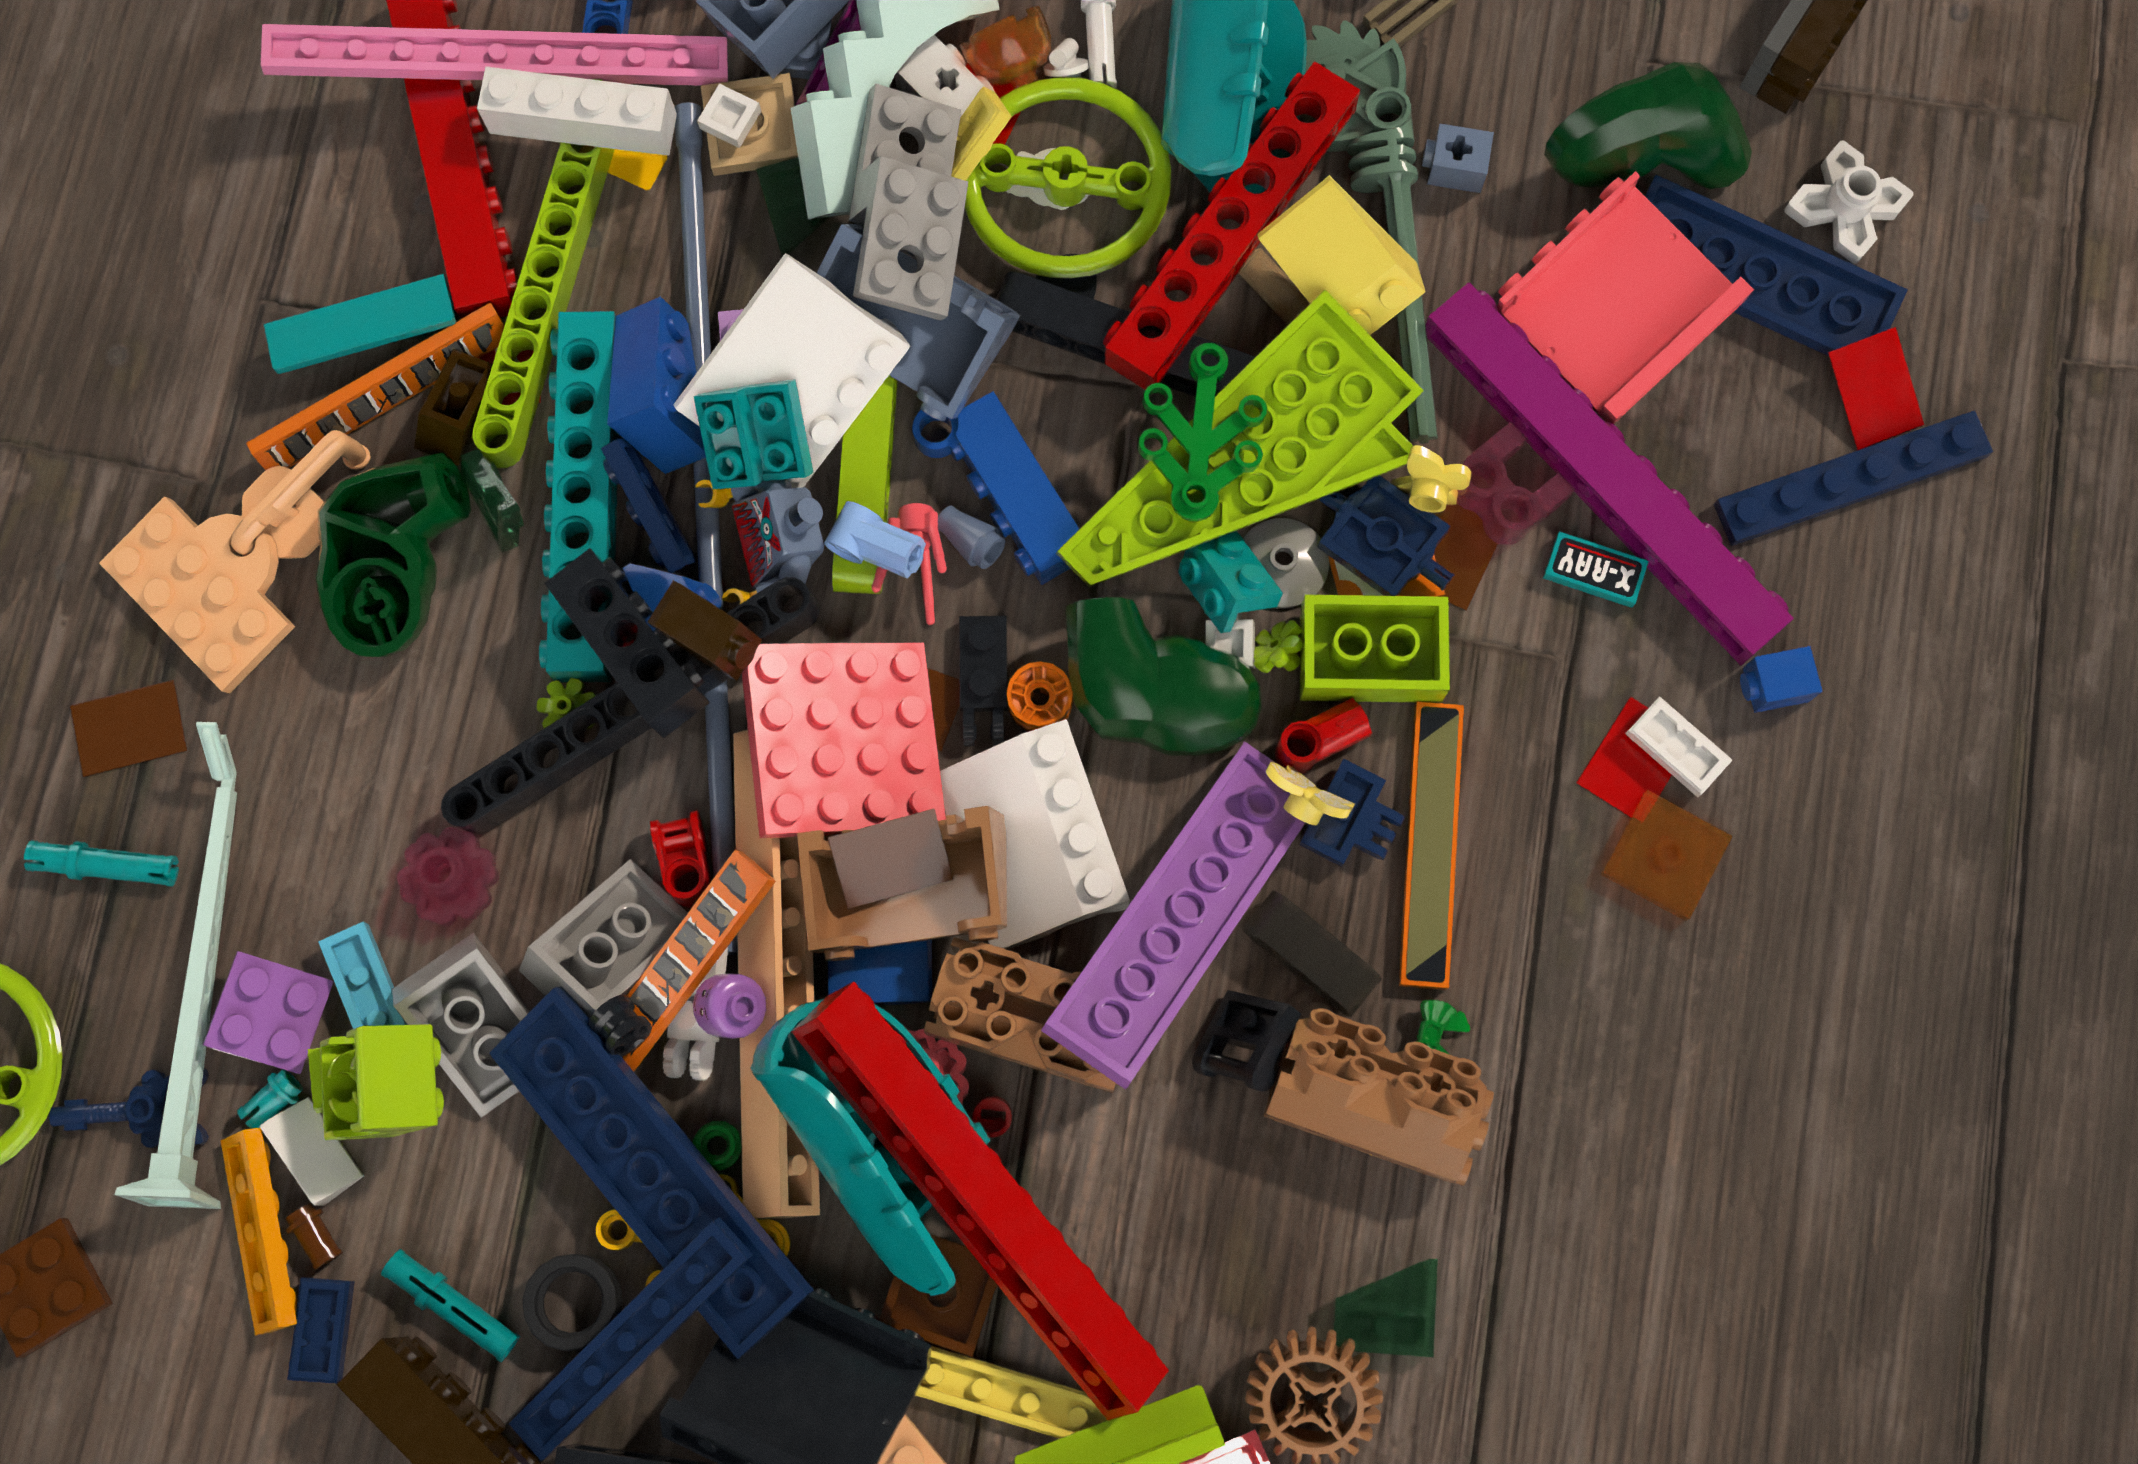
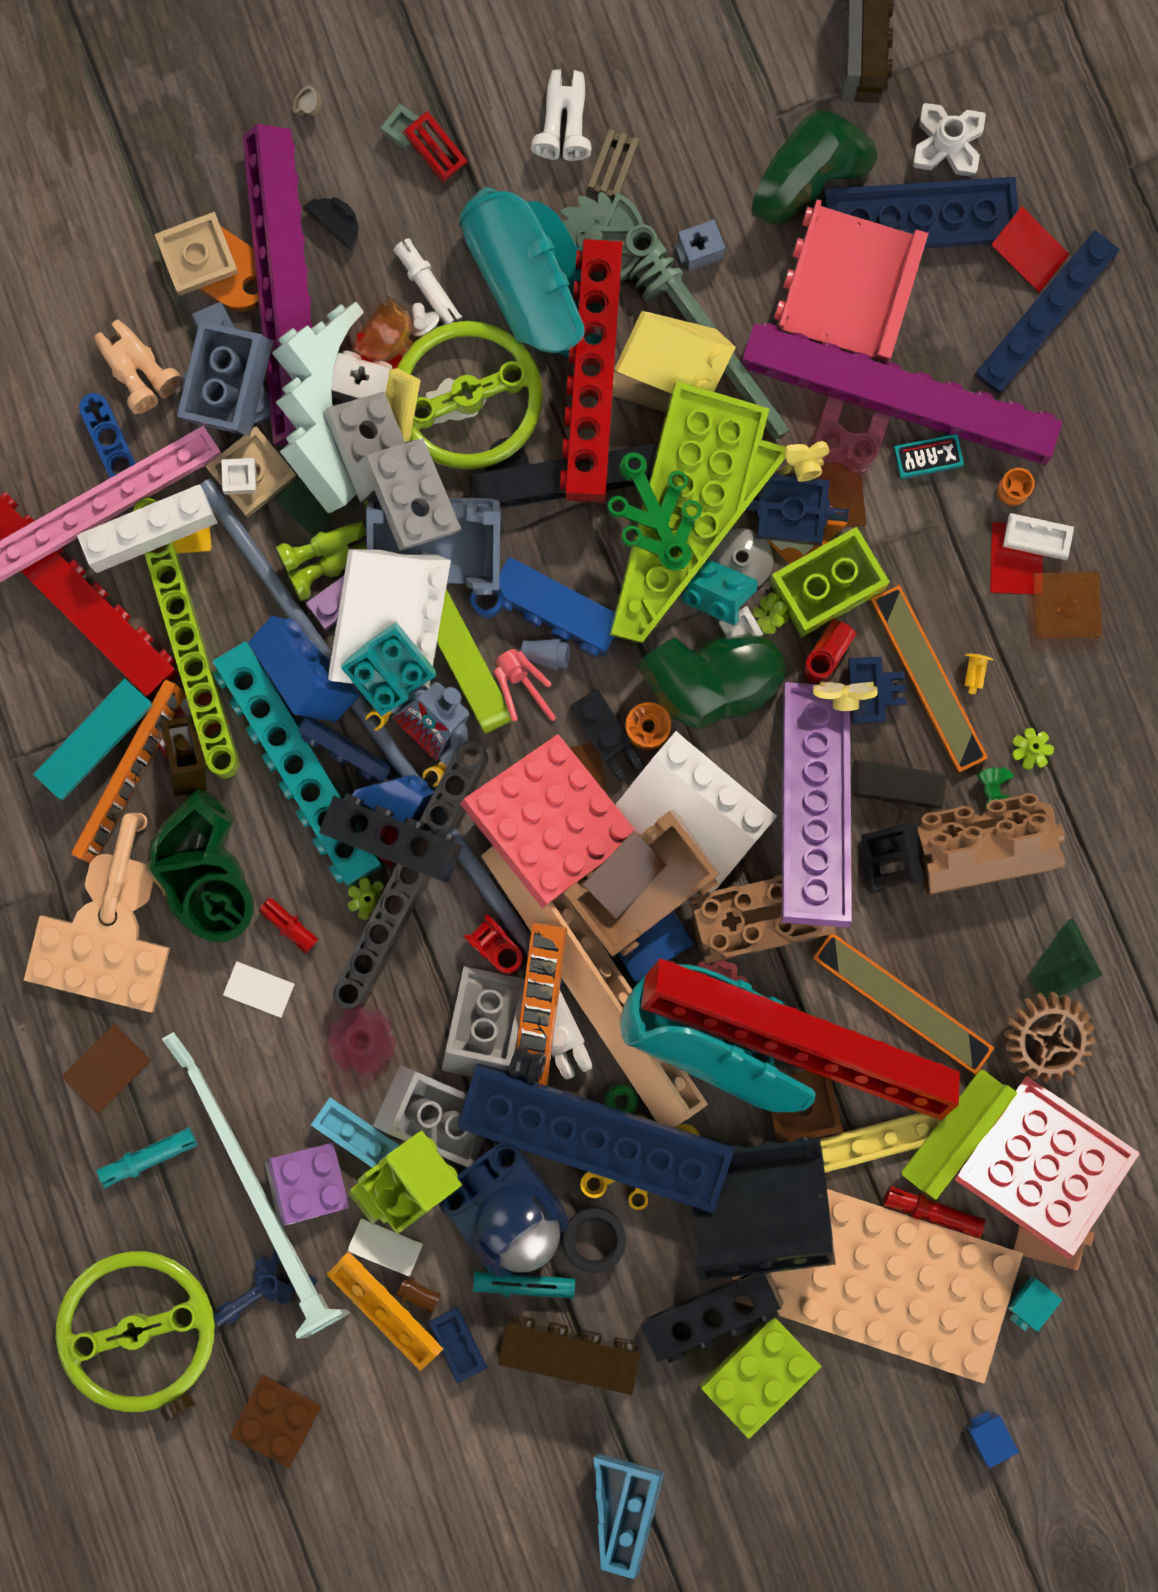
camera: 35 degrees left, 5 degrees up
(271, 1099) = (342, 1232): teal pin -> none
(369, 741) = (258, 989): none -> white sticker
(450, 683) = (288, 925): none -> red axle
(481, 1199) = (506, 1213): none -> dark blue piece
(492, 499) = (244, 799): clear green wing -> none
(631, 1338) = (645, 1238): dark blue plate -> none
(705, 631) = (440, 805): dark brown slope -> none
(729, 1006) = (584, 1016): medium lavender head -> none
(732, 247) = (331, 546): none -> lime piece
(864, 536) = (489, 691): light blue piece -> none
(993, 1126) = (777, 992): red hinge -> none
(1152, 1239) = (903, 1003): none -> olive tile
(1498, 870) = (976, 671): none -> yellow piece
(1505, 1015) = (1028, 753): none -> lime plant
(1692, 661) = (1020, 482): none -> orange wheel
(1781, 679) = (1074, 461): blue brick -> none

